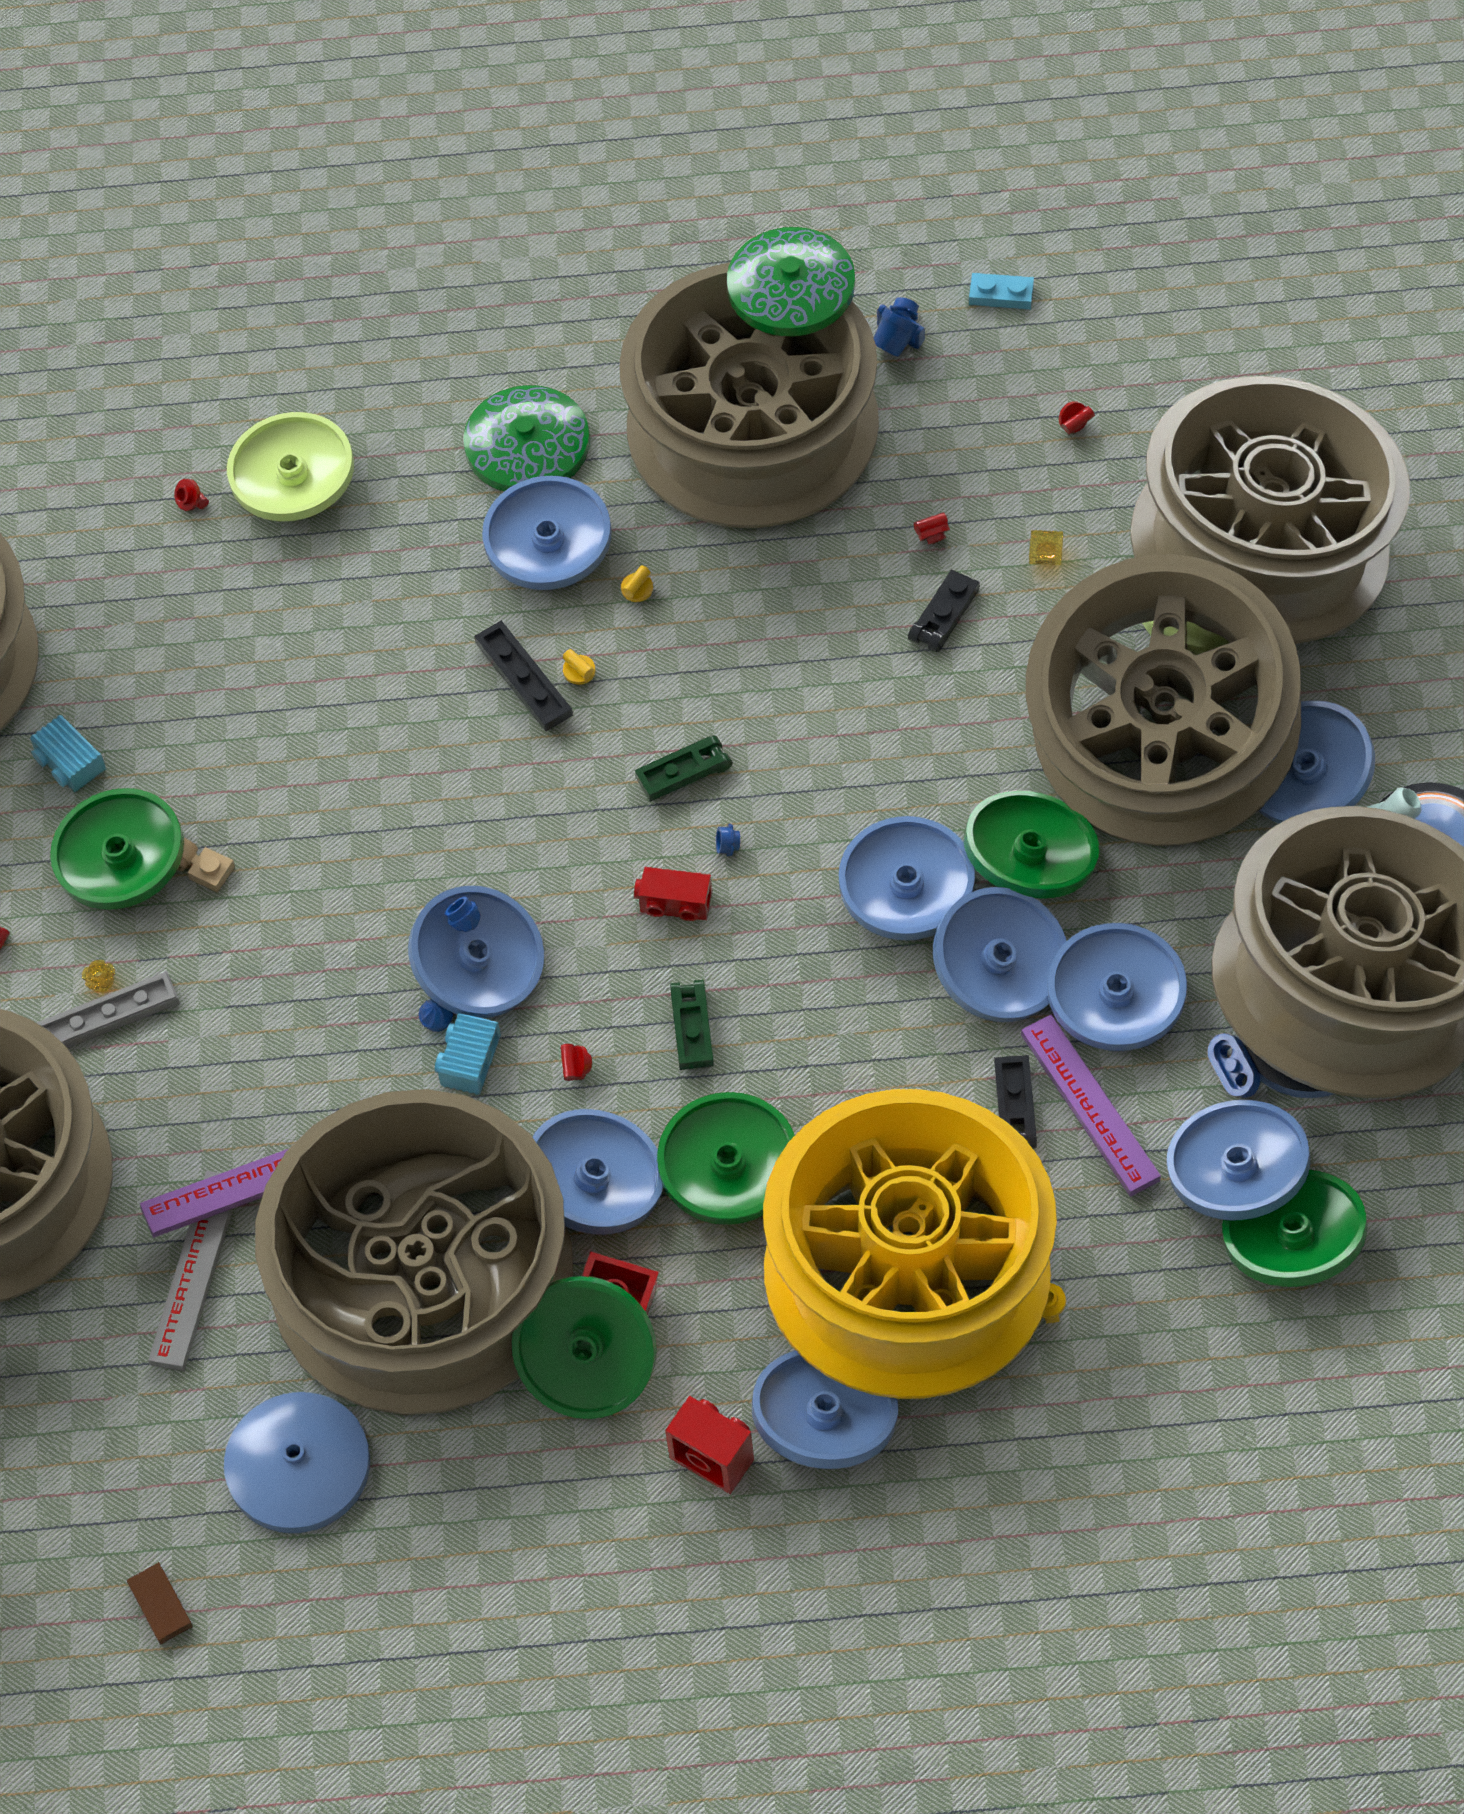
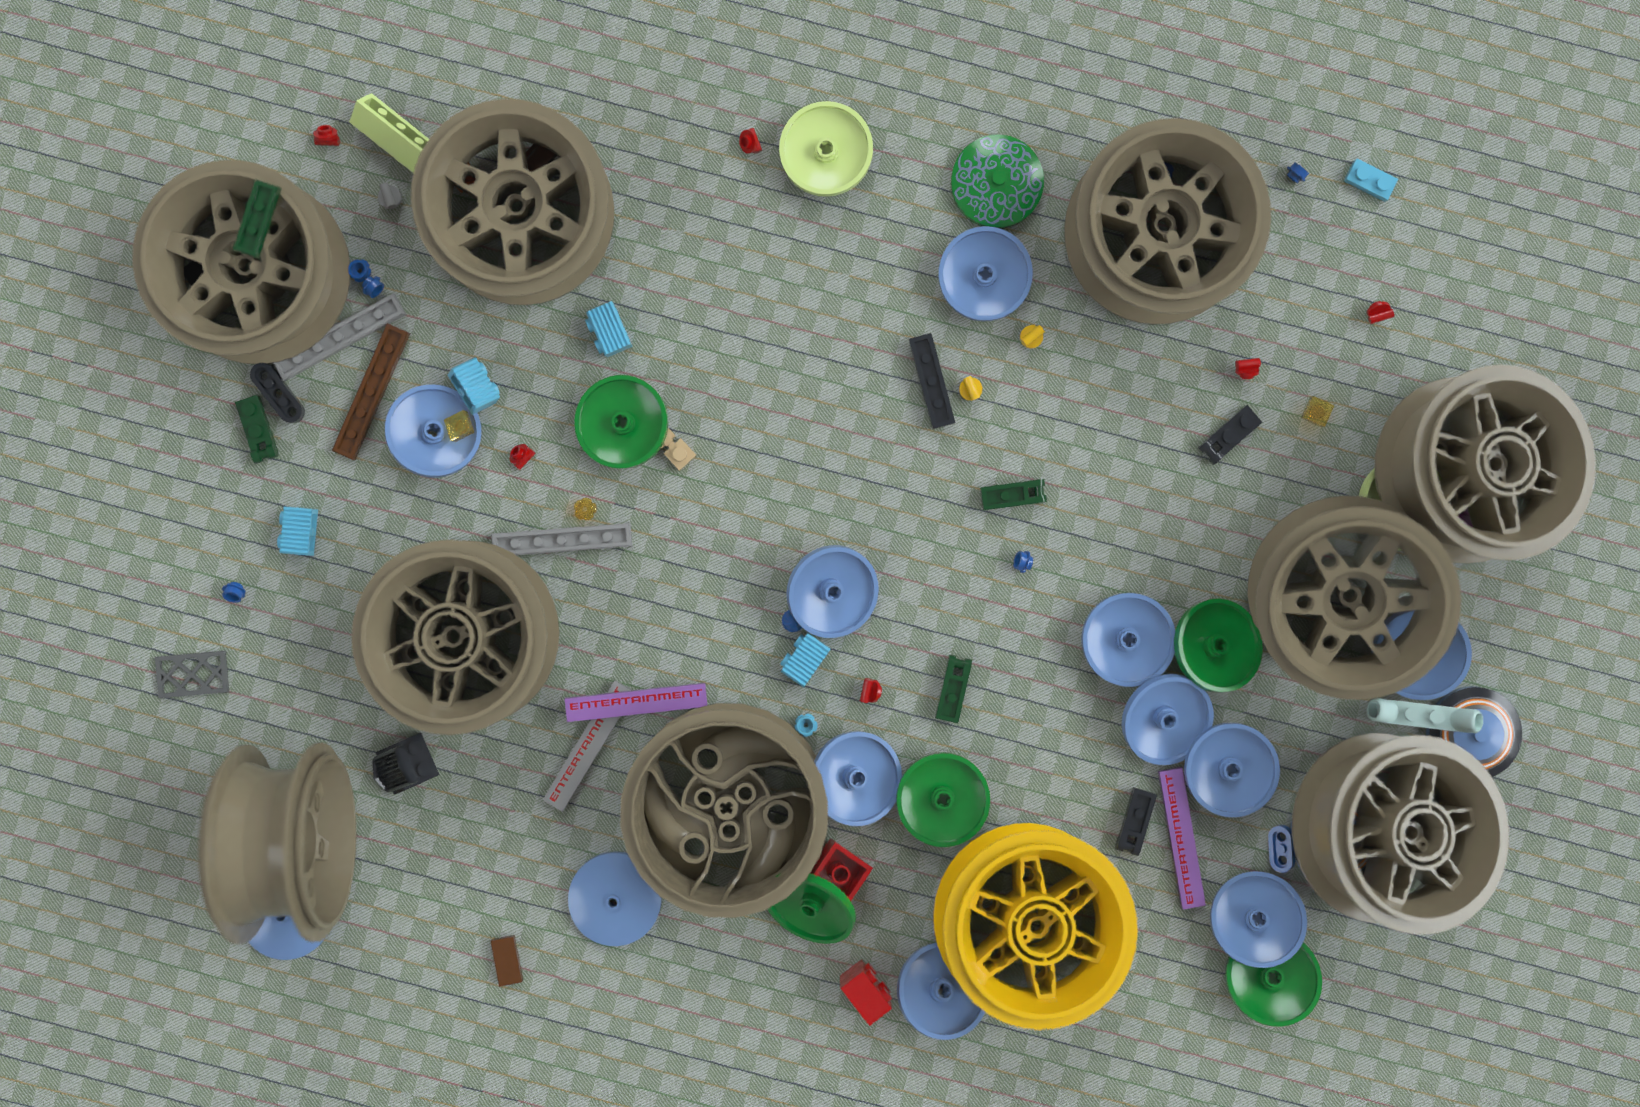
camera: 15 degrees right, 30 degrees up
(463, 914) = (831, 570): blue plate -> none
(674, 893) = (975, 590): red brick -> none
(791, 281) = (1230, 161): green dish -> none
(897, 331) = (1285, 192): blue piece -> none

